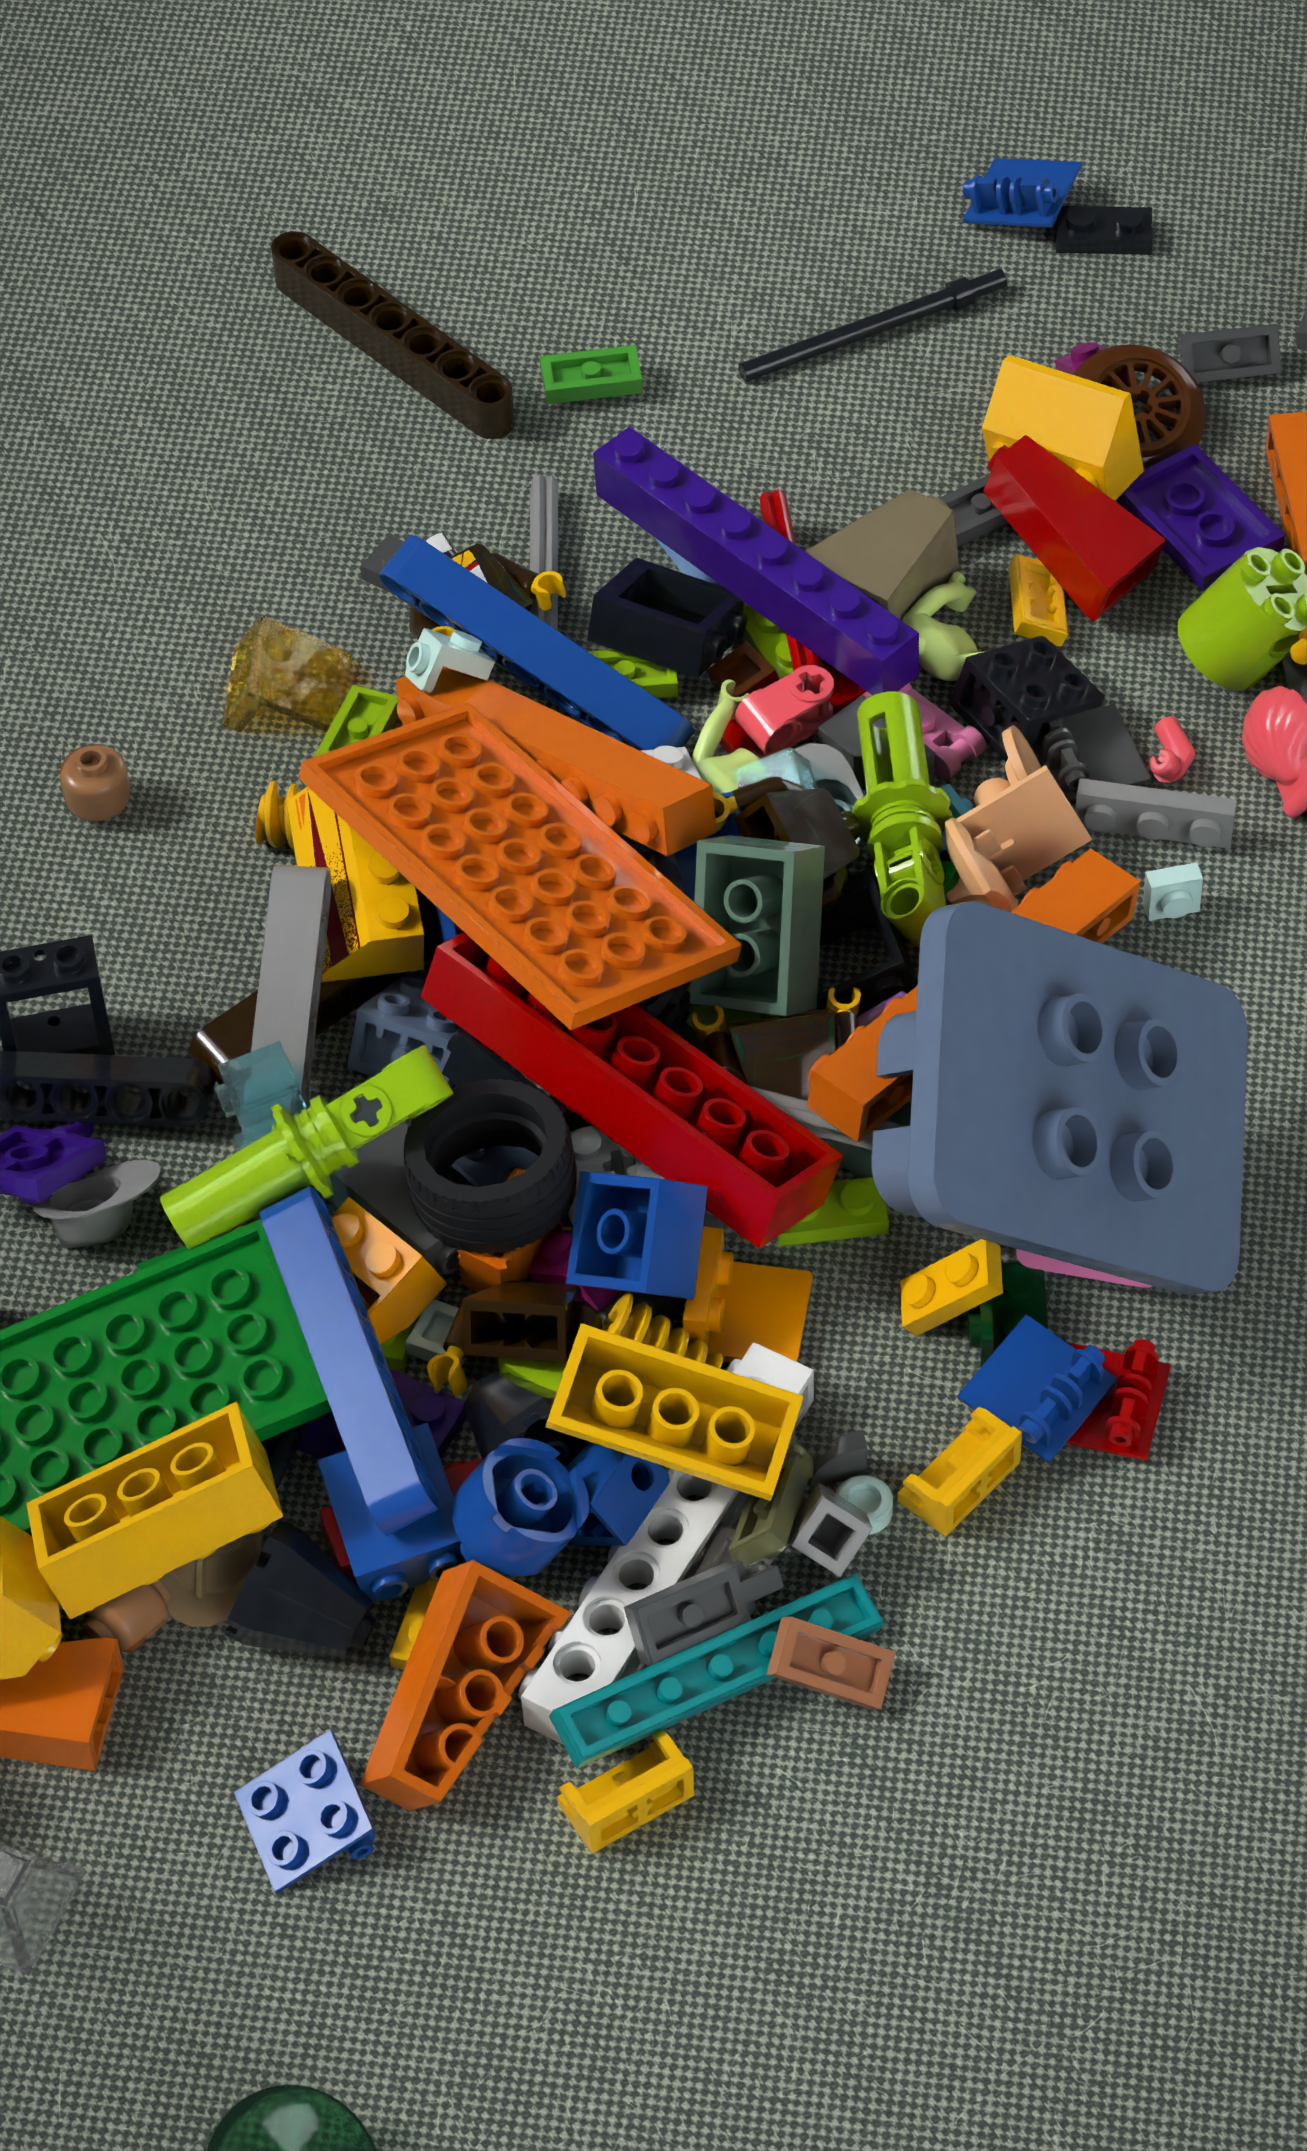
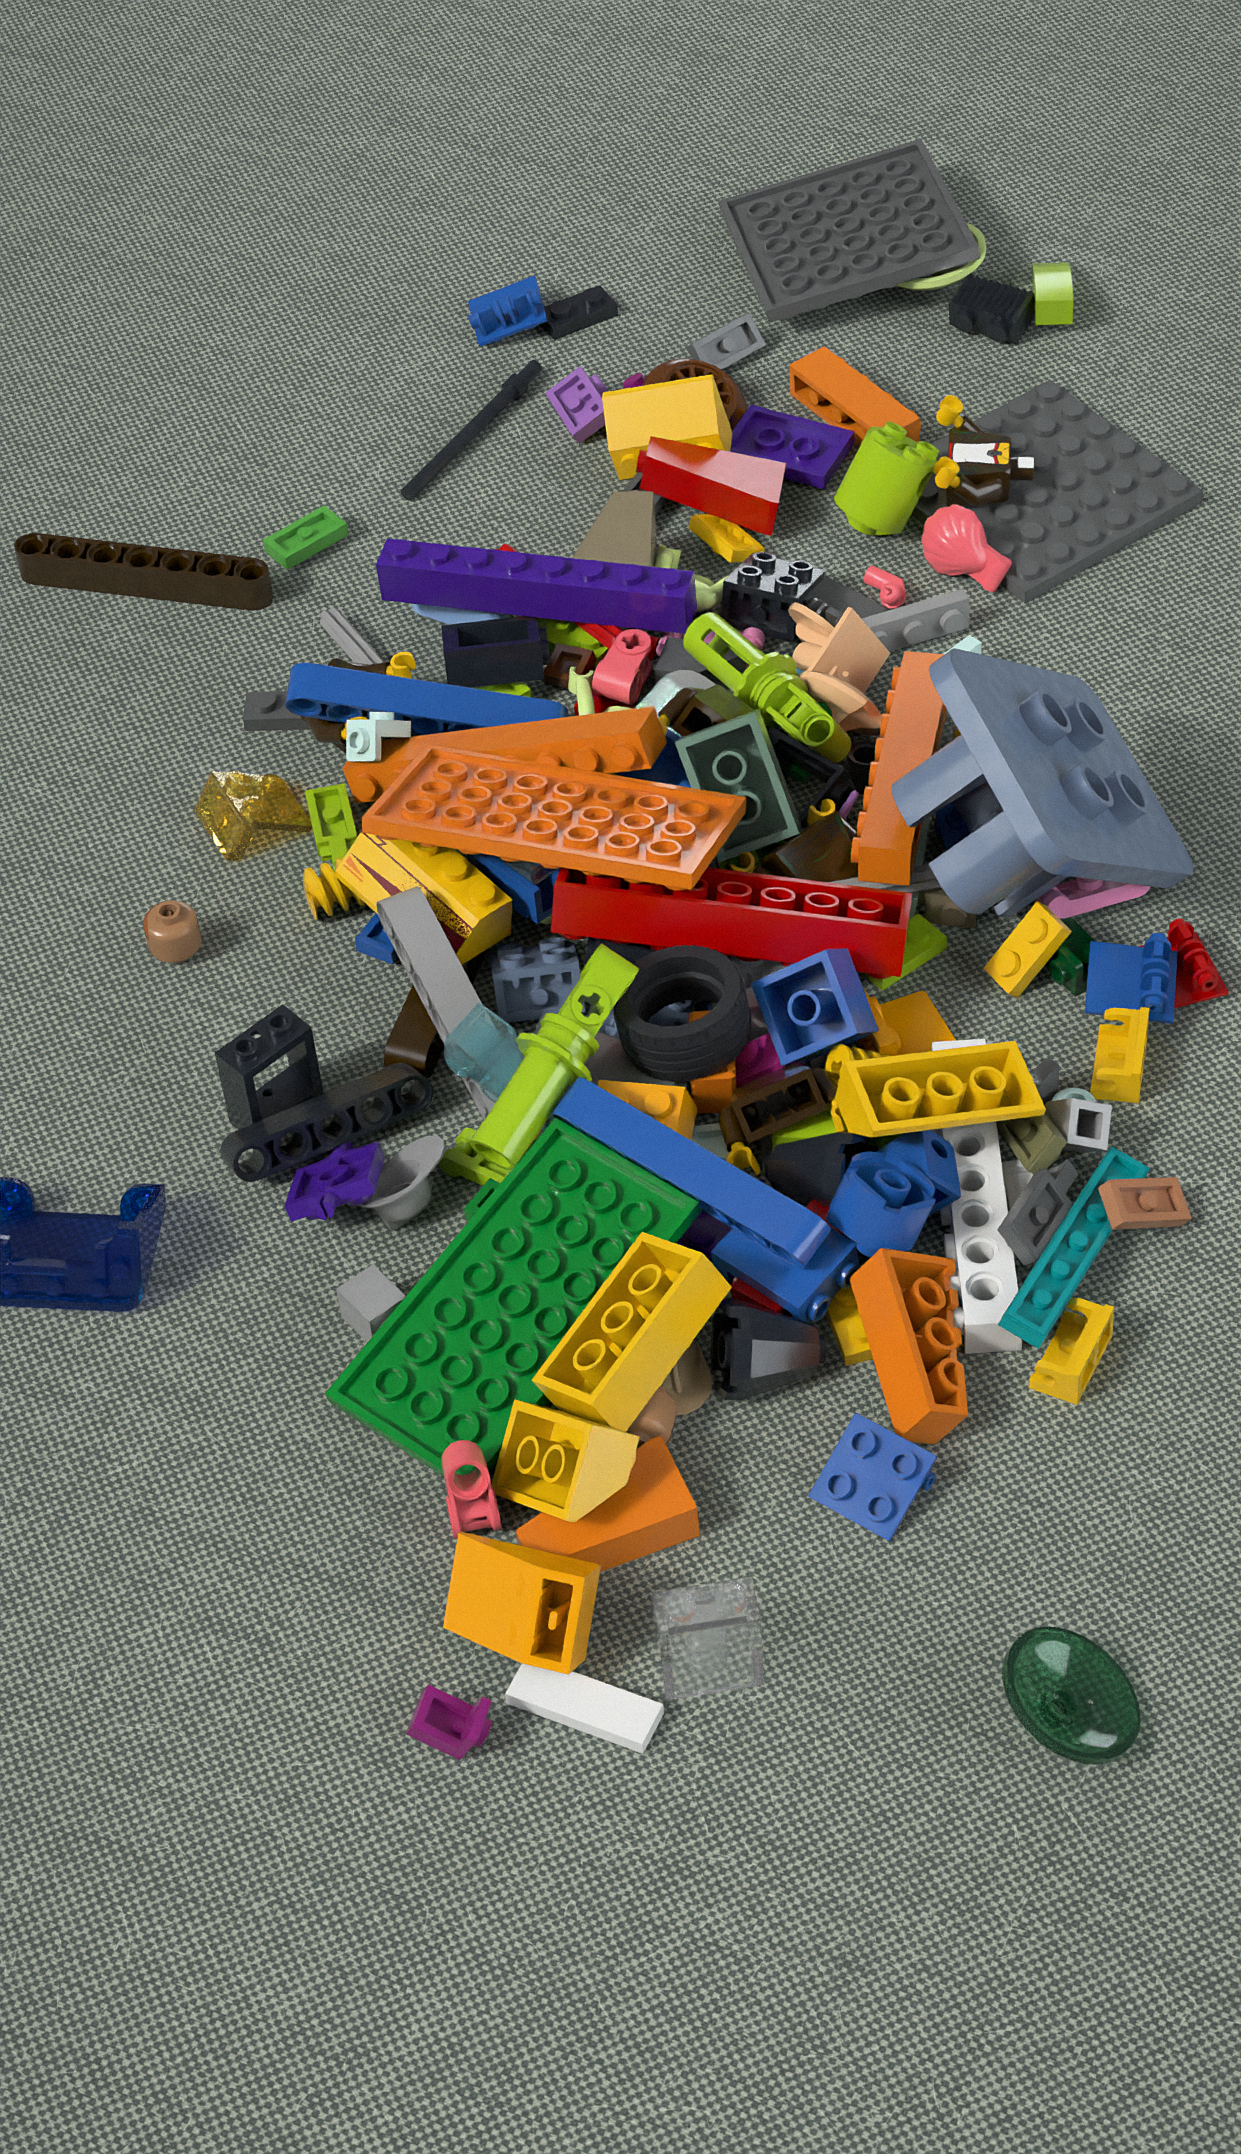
camera: 30 degrees left, 5 degrees down
(1014, 333) = (579, 403): none -> medium lavender bracket

